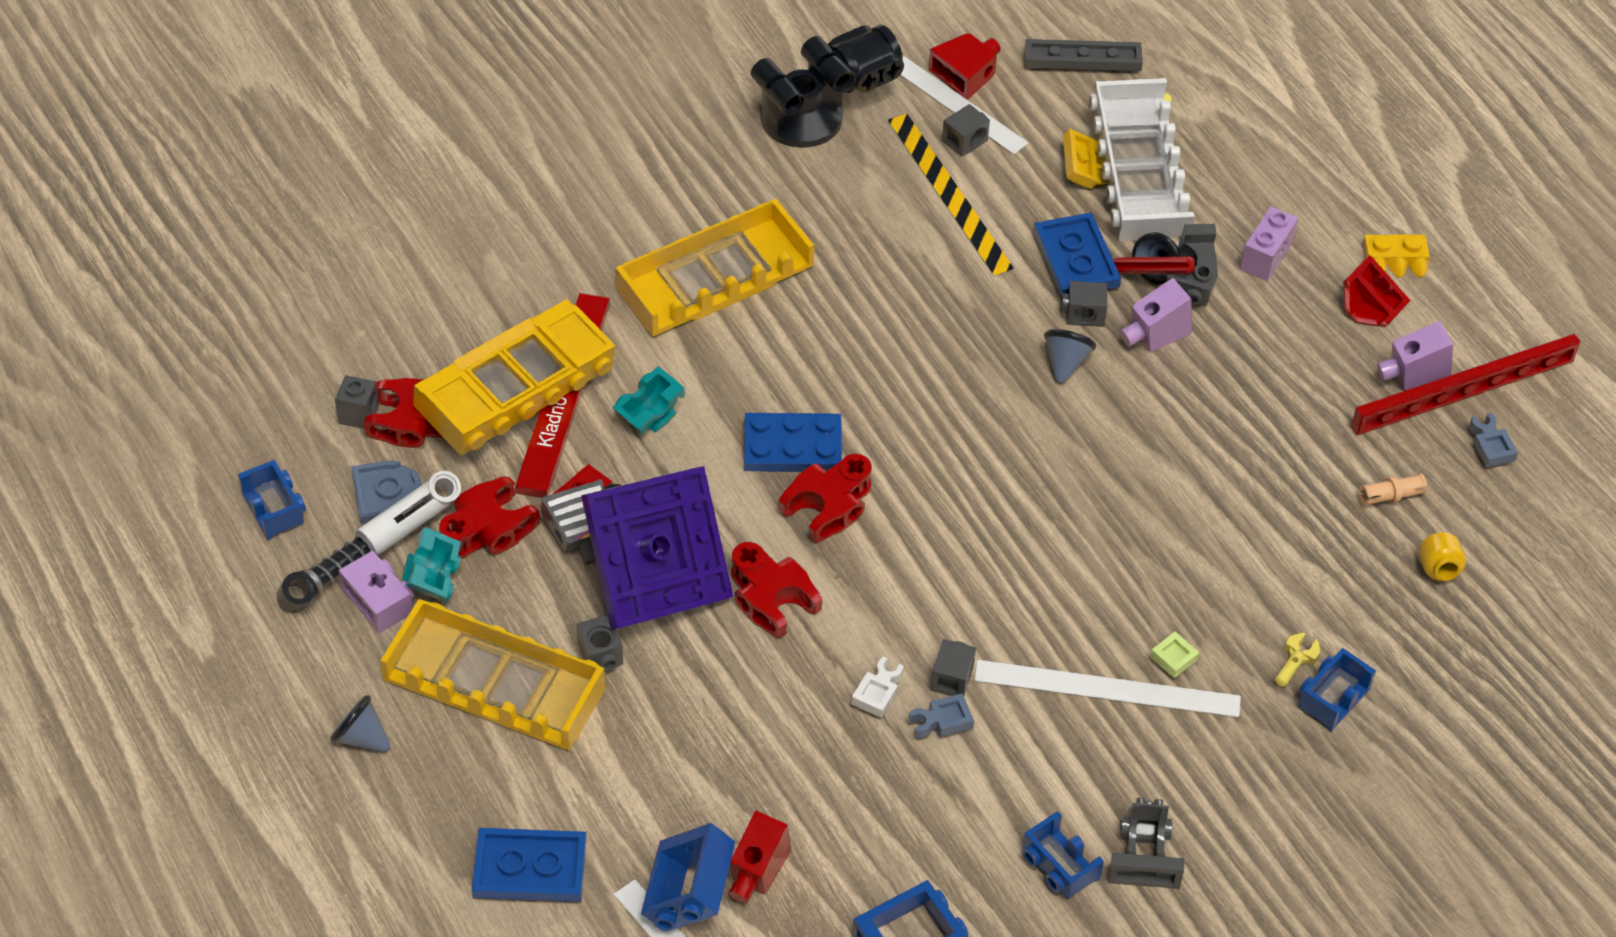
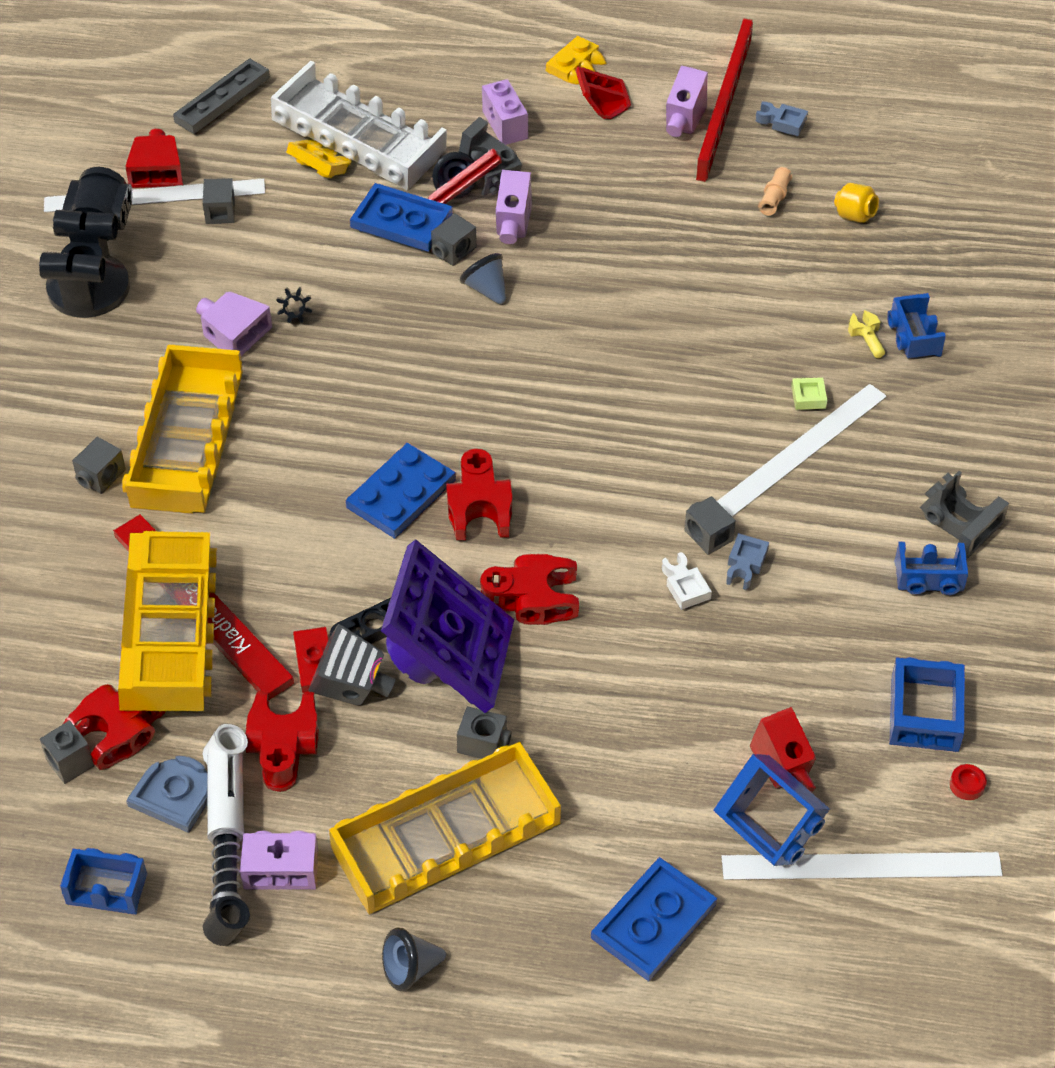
camera: 50 degrees left, 0 degrees up
(432, 564) = (295, 803): teal cylinder -> none
(627, 240) = (98, 465): none -> dark grey brick
(653, 402) = (276, 548): teal cylinder -> none
(849, 226) = (234, 321): none -> lavender torso
(905, 249) = (297, 296): none -> black gear
(951, 194) = (261, 250): sticker -> none

